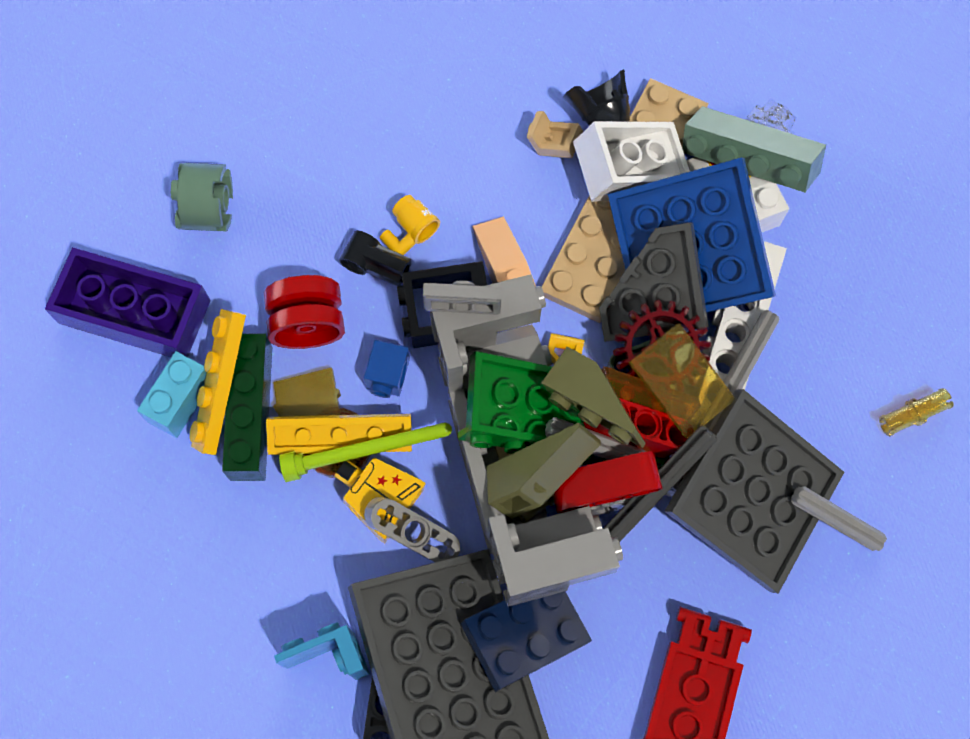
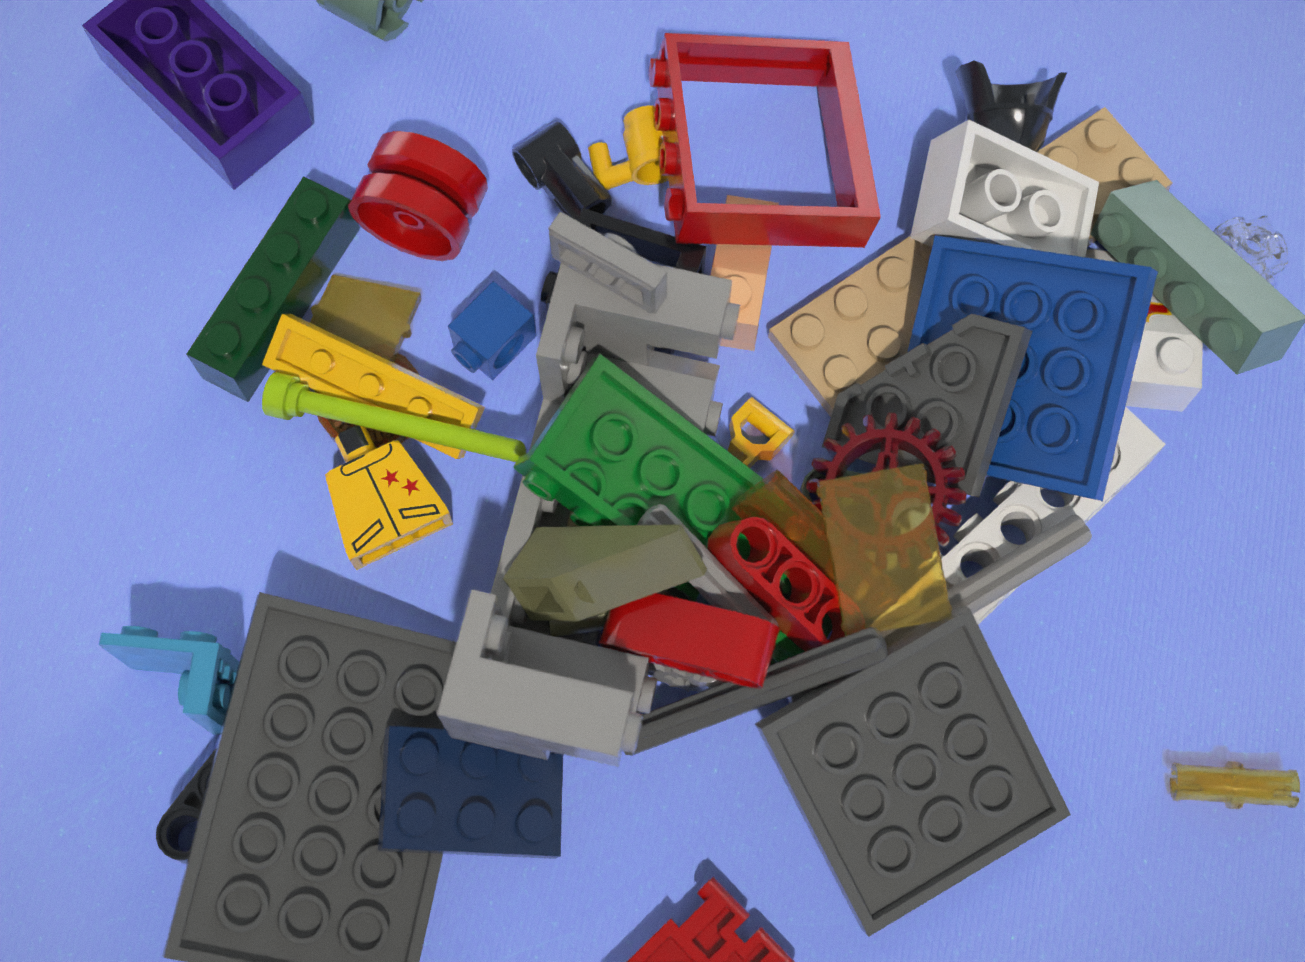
camera: 30 degrees right, 0 degrees up
(174, 395) = (192, 225): medium azure brick -> none
(214, 395) = (262, 211): yellow plate -> none
(405, 516) = (382, 524): light grey beam -> none
(520, 158) = (766, 62): none -> red window
(551, 137) = (907, 122): tan bracket -> none
(582, 386) = (730, 489): olive slope -> none
(838, 518) = (1020, 877): light grey axle -> none

